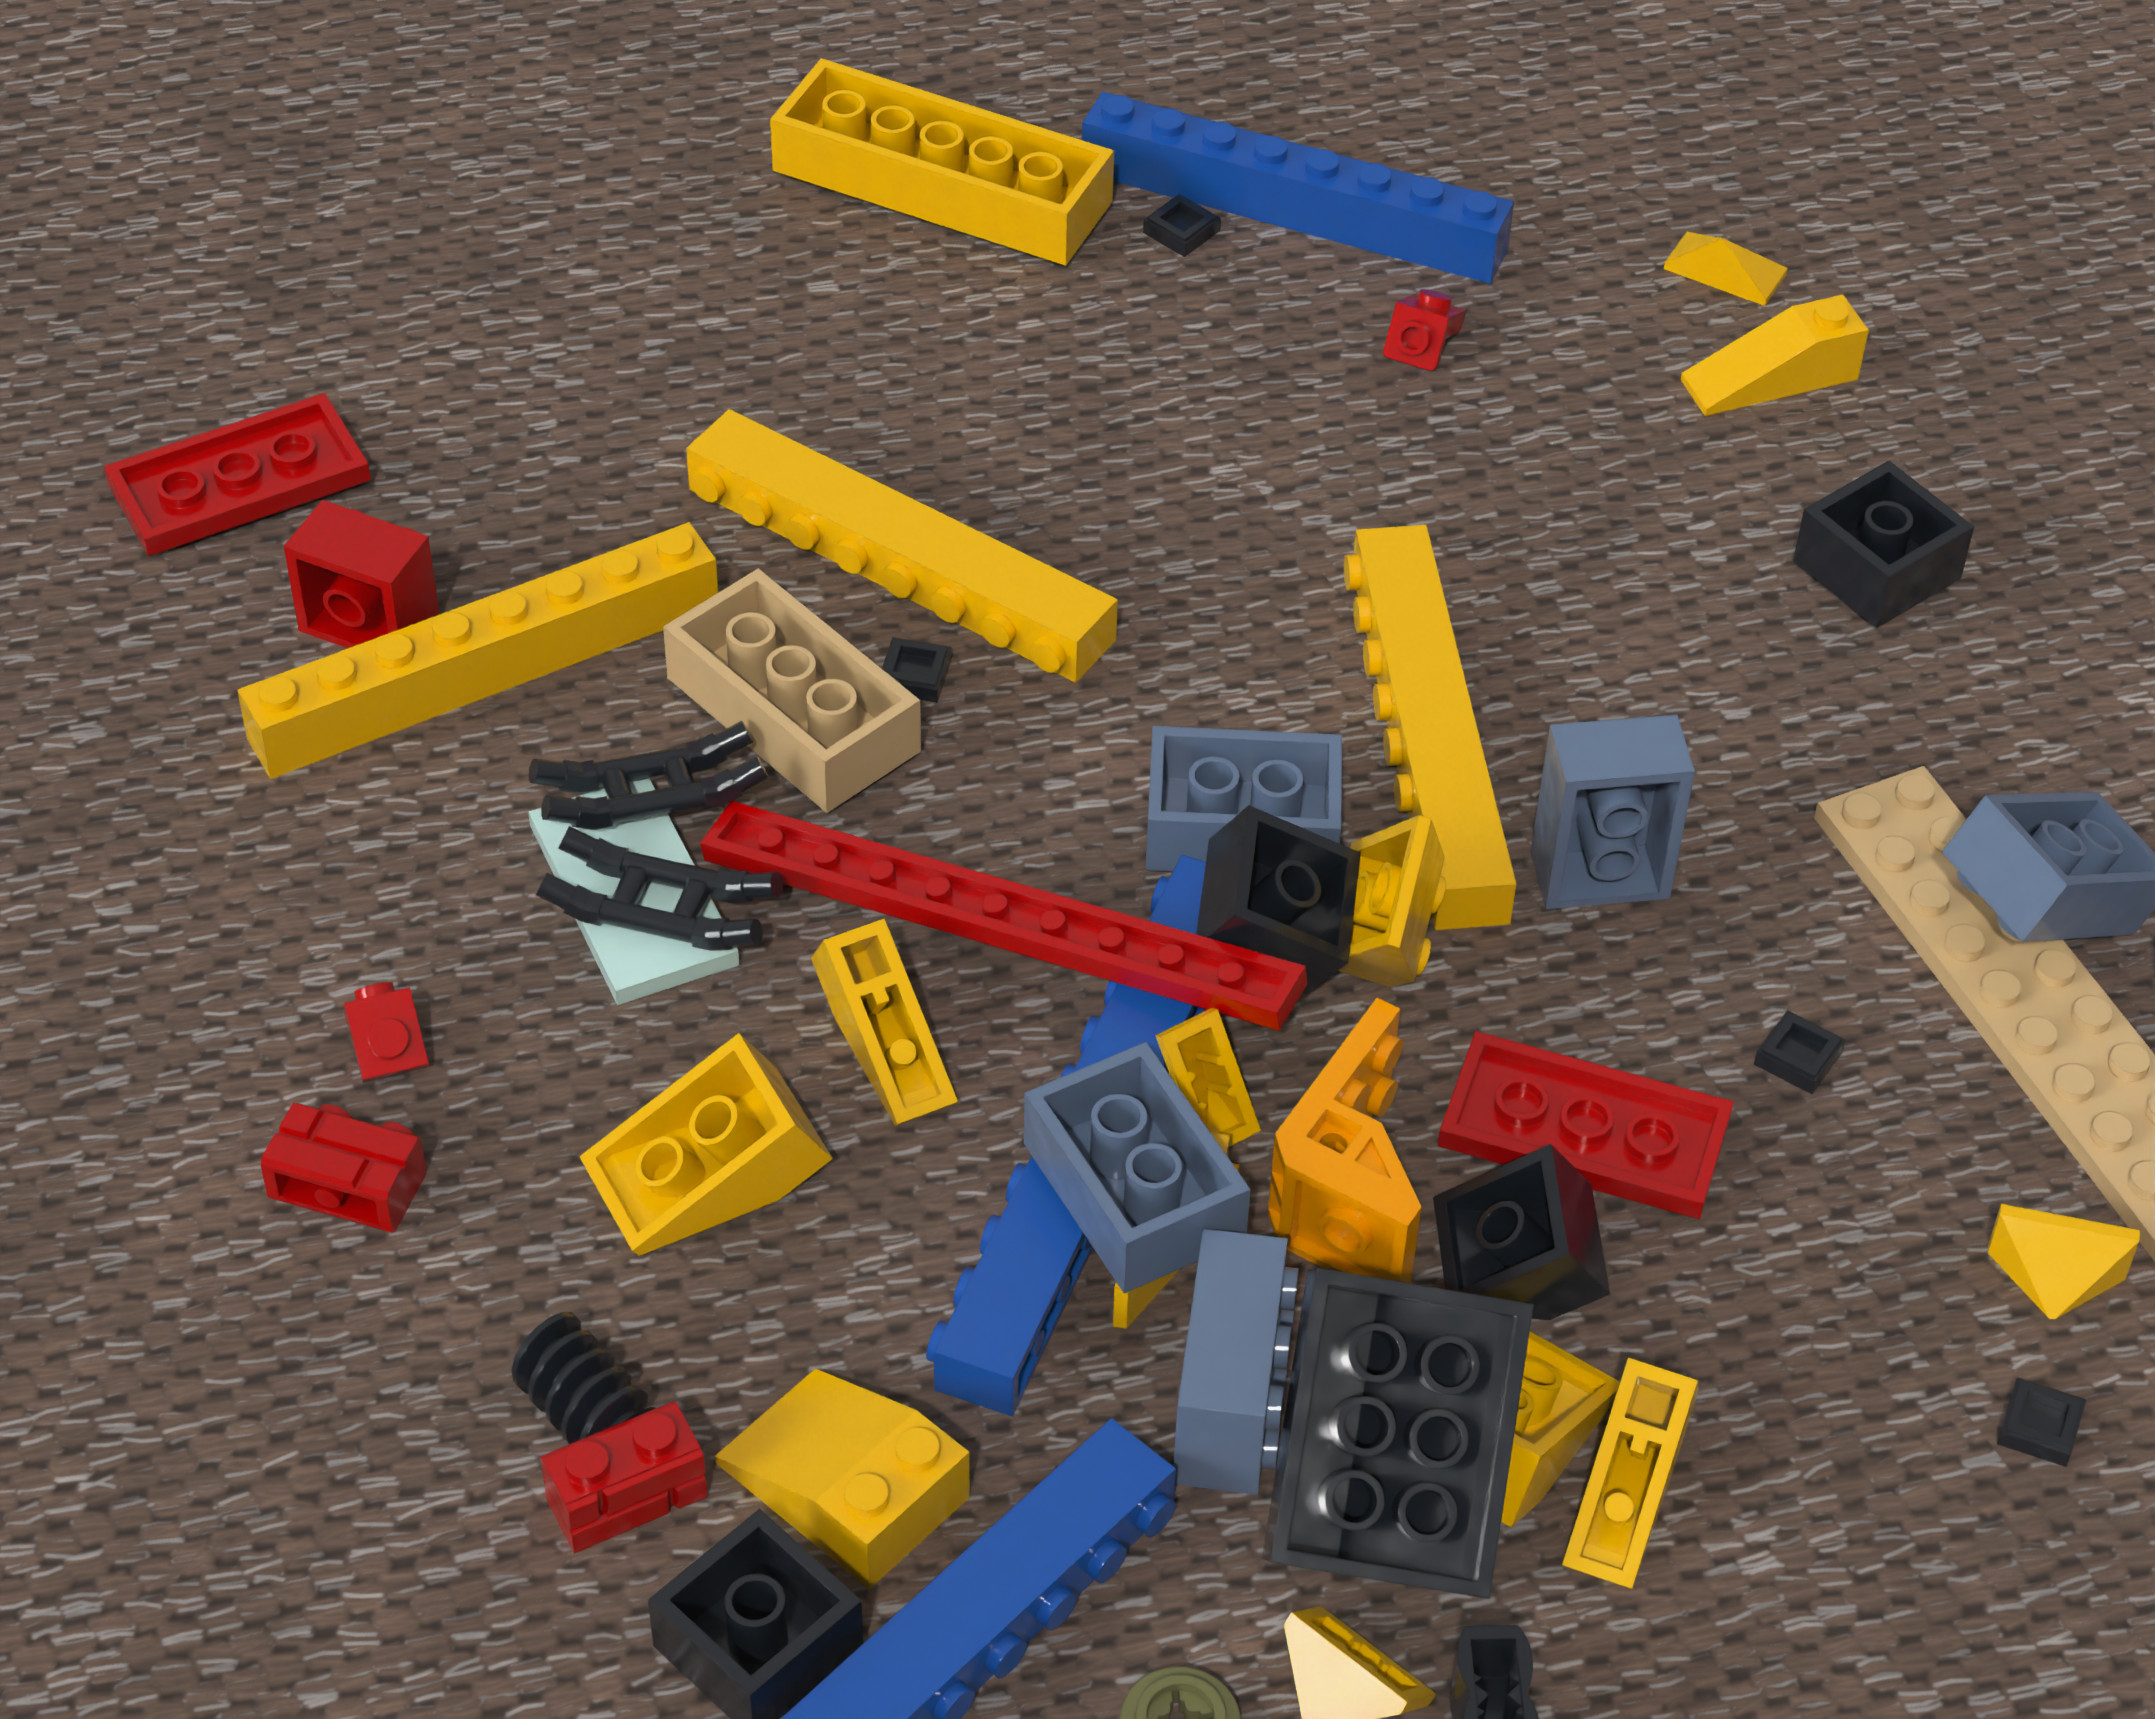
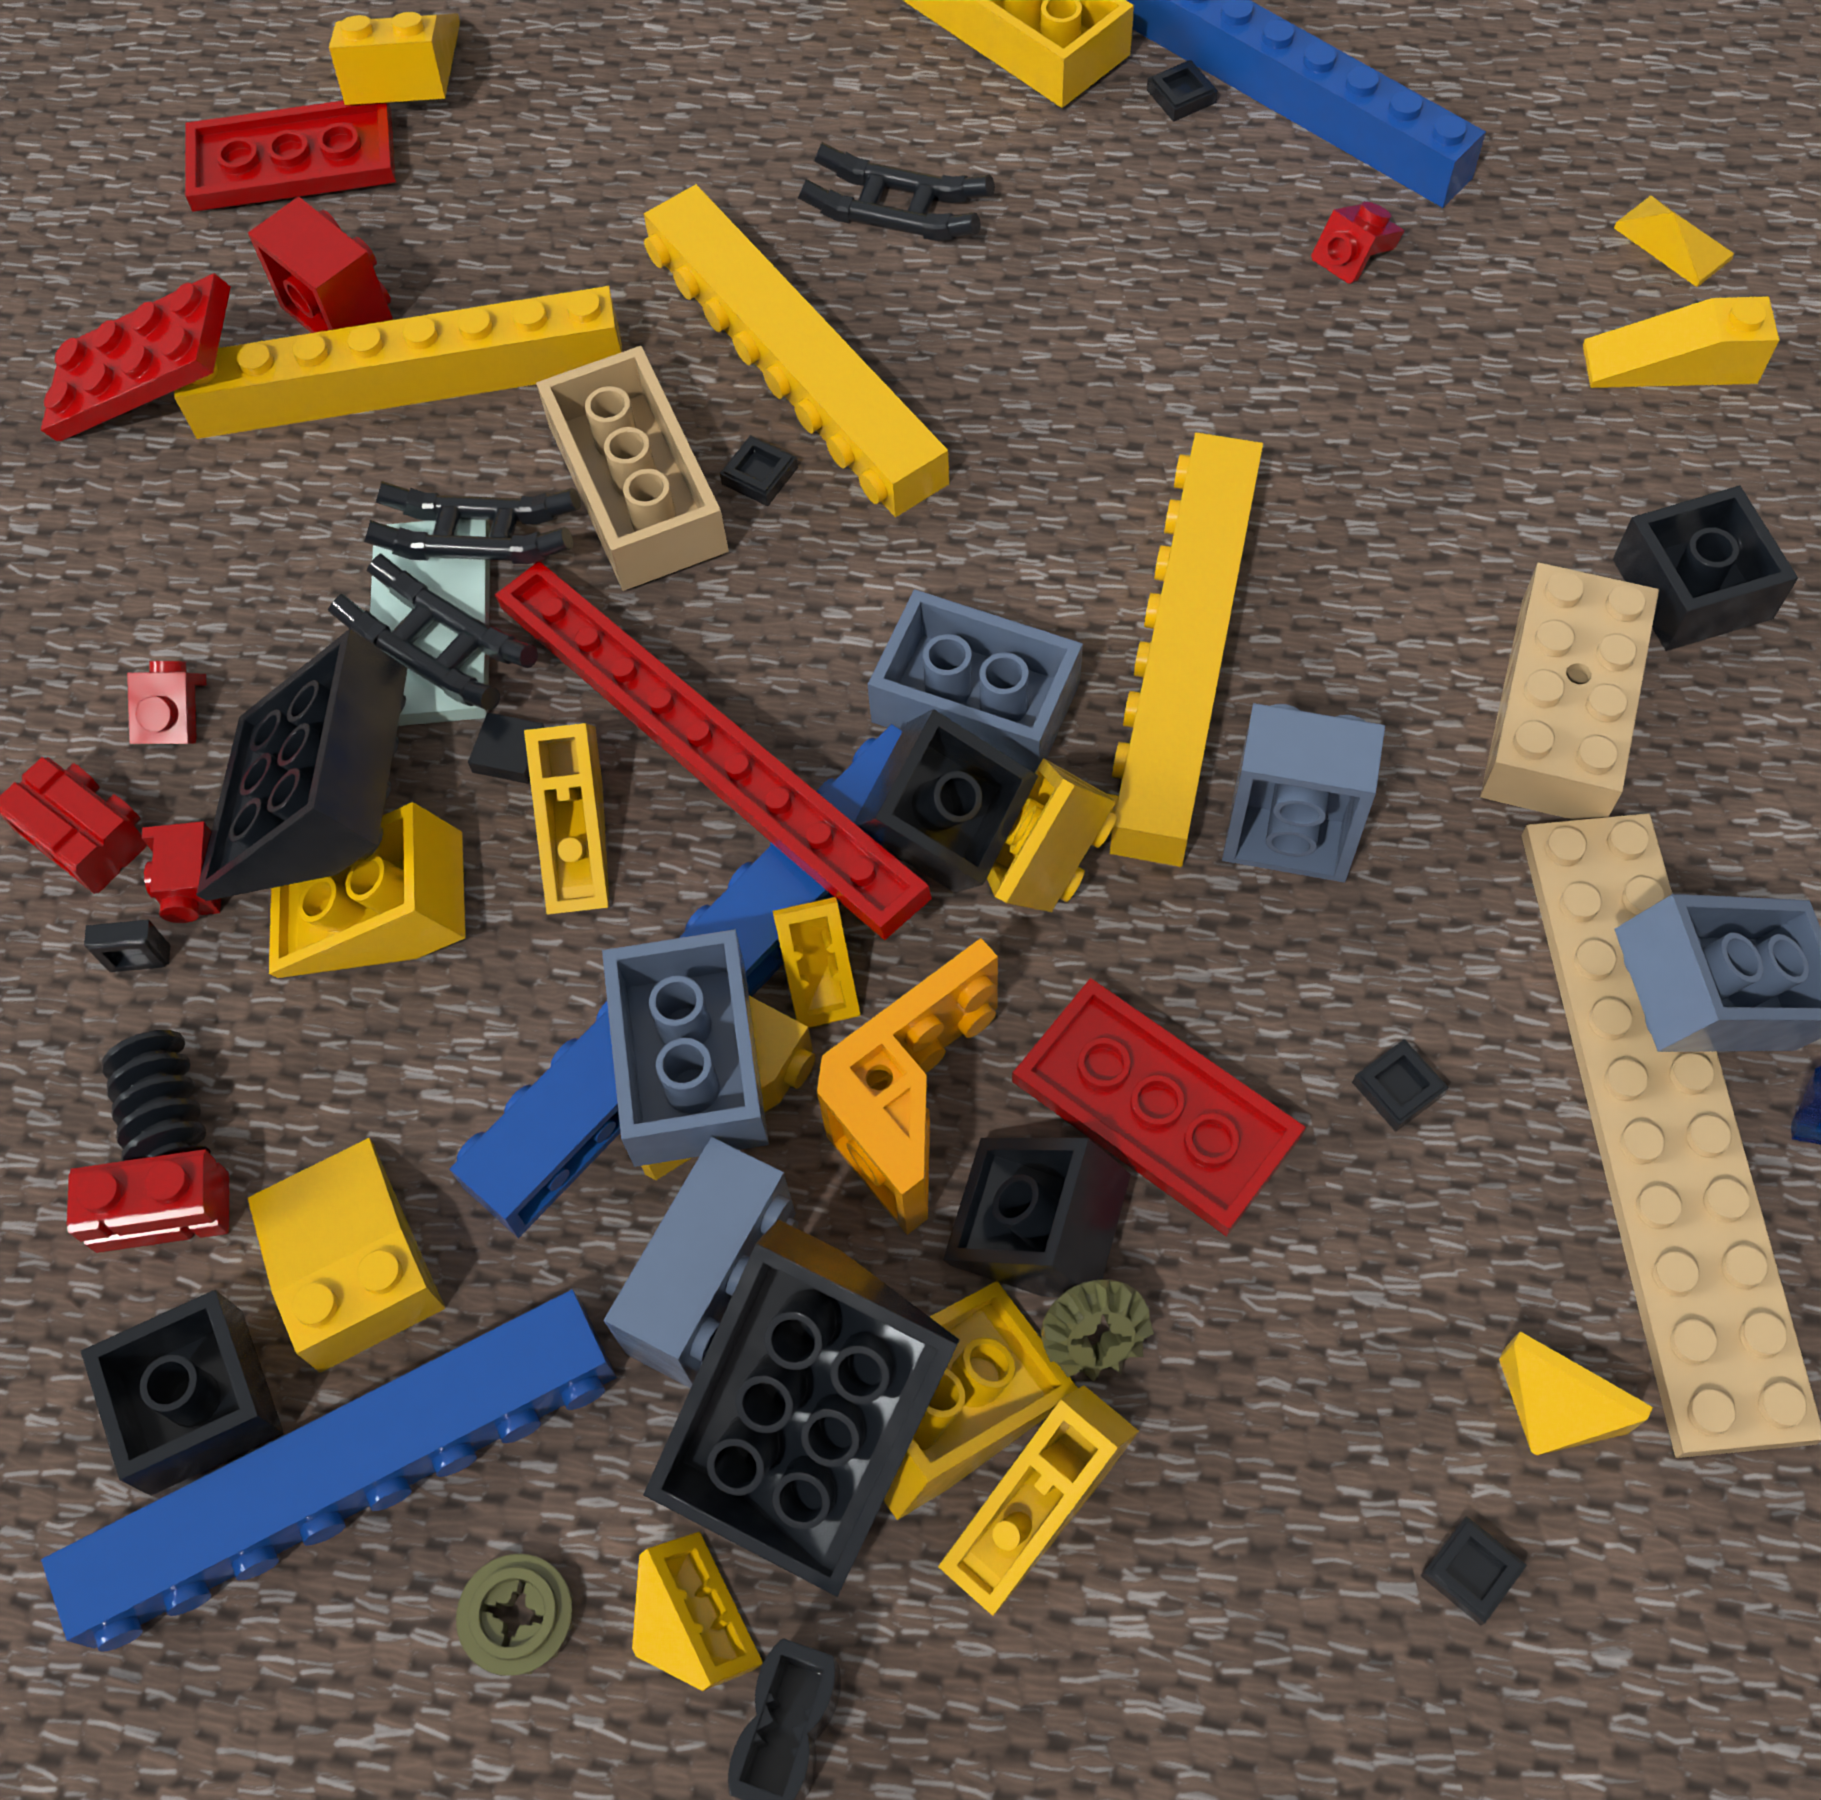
camera: 25 degrees right, 15 degrees up
(191, 704) = (136, 358): none -> red plate
(324, 352) = (394, 57): none -> yellow slope
(470, 1260) = (127, 945): none -> black tile
(493, 1175) = (176, 870): none -> red brick
(598, 1043) = (308, 773): none -> black slope
(779, 984) = (502, 748): none -> black tile
(907, 368) = (877, 178): none -> black piece
(1605, 1300) = (1077, 1316): none -> olive gear
(1808, 680) = (1570, 694): none -> tan brick

